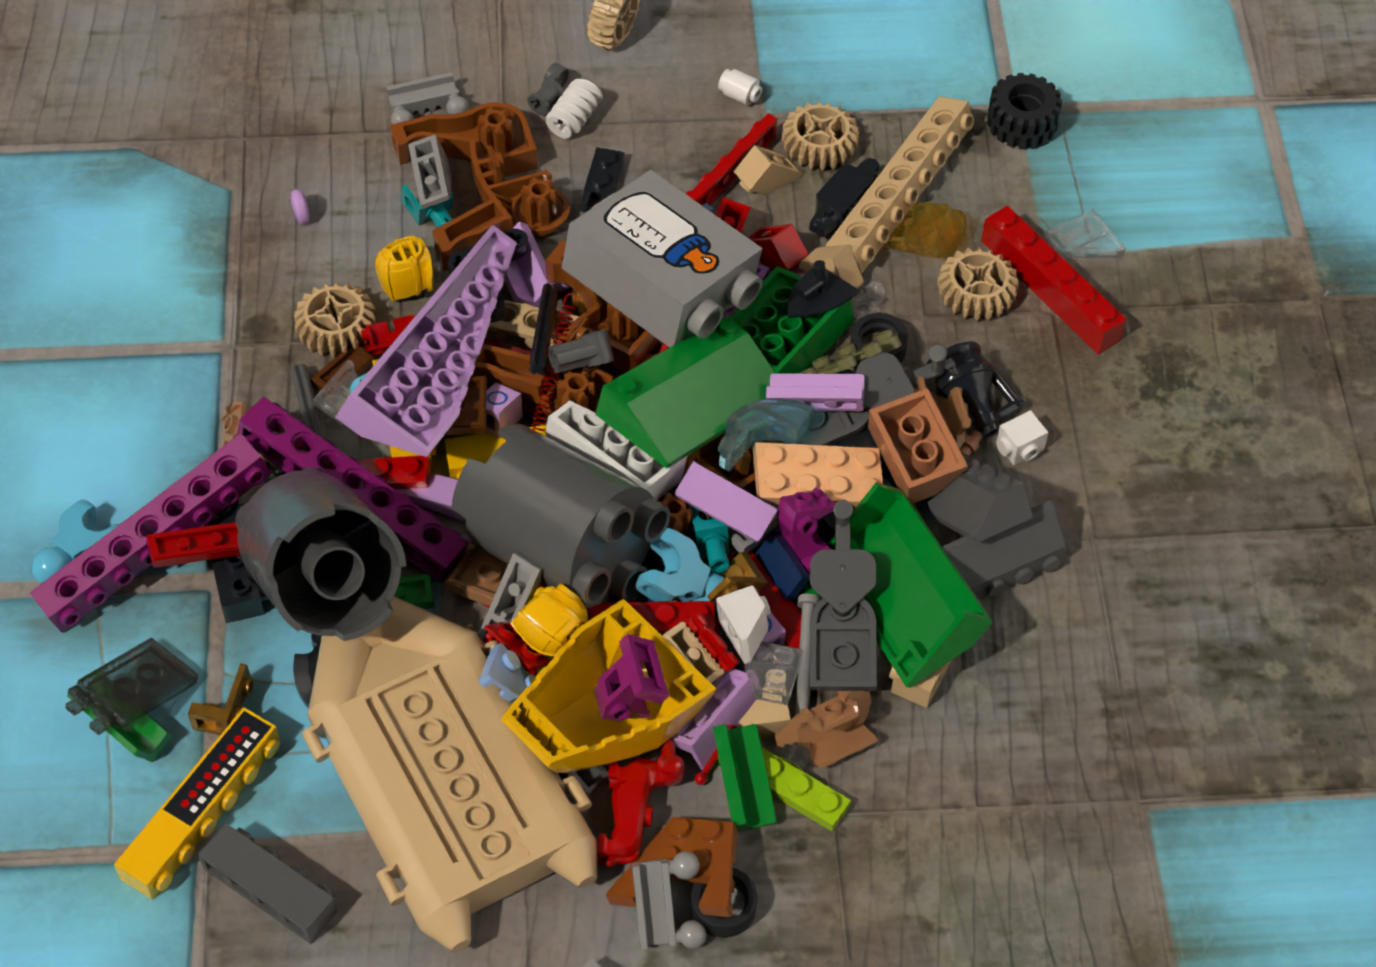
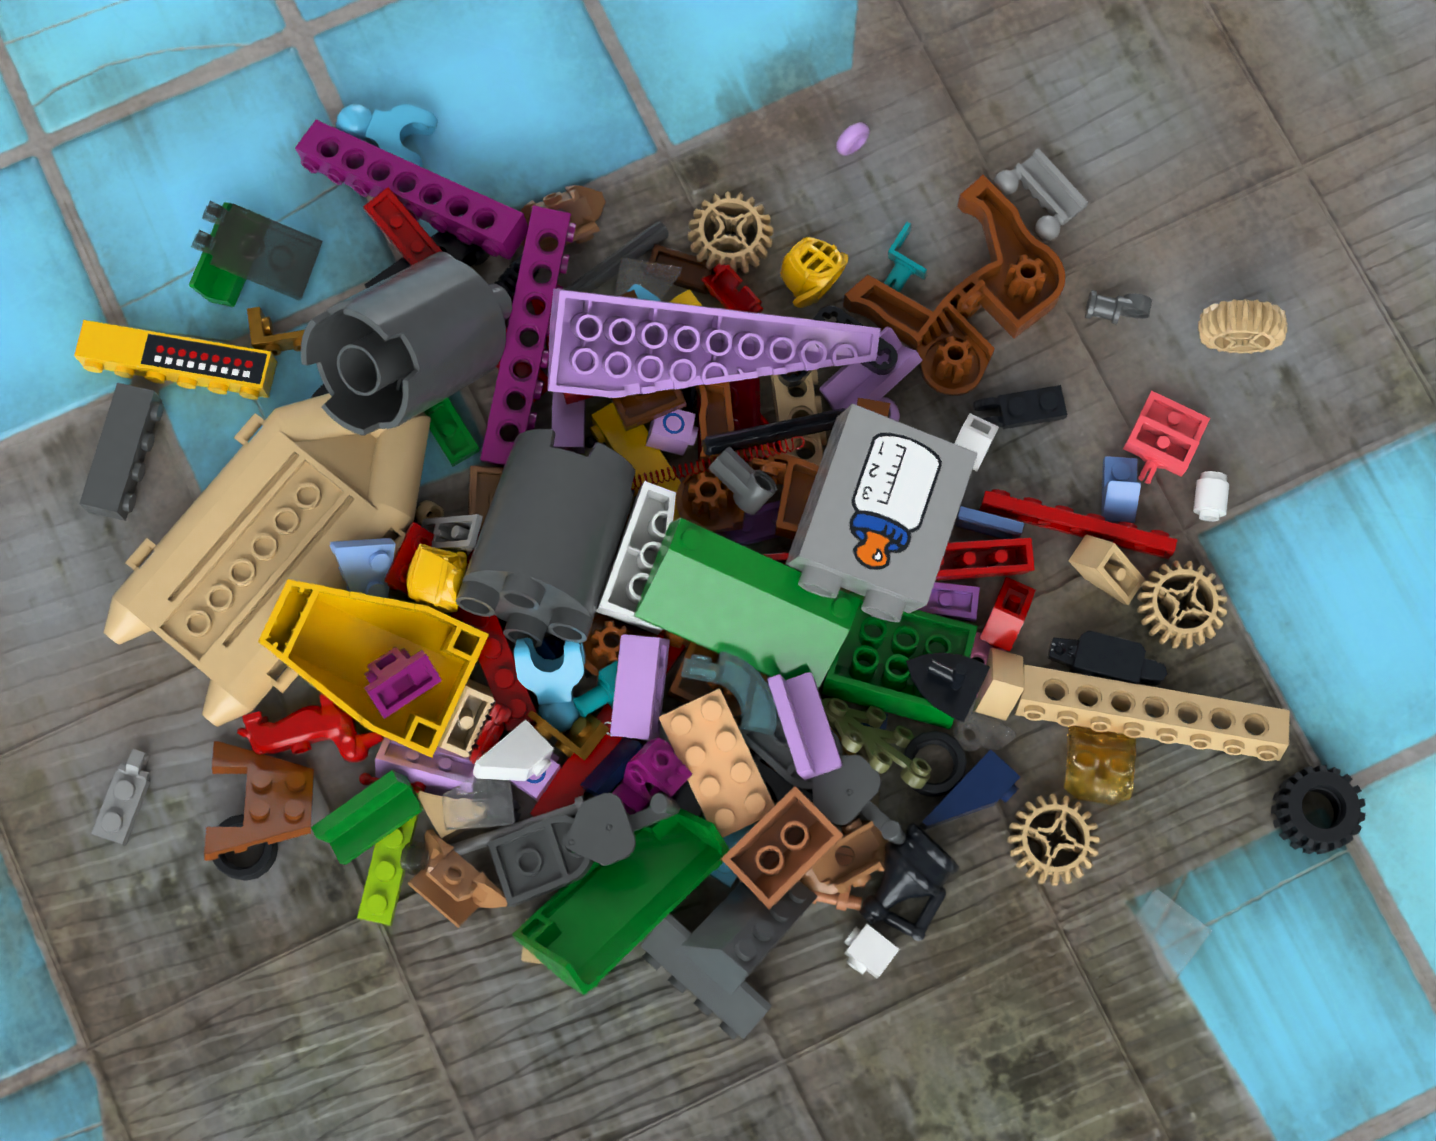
camera: 70 degrees right, 20 degrees up
(430, 171) = (937, 242): light grey slope -> none
(573, 108) = (1099, 340): white piece -> none
(654, 902) = (208, 787): light grey gear -> none
(676, 97) = (1165, 436): none -> coral plate
(703, 143) = (1120, 489): none -> medium blue slope
(915, 310) = (979, 789): none -> dark blue slope
(1054, 280) = (1093, 917): red brick -> none

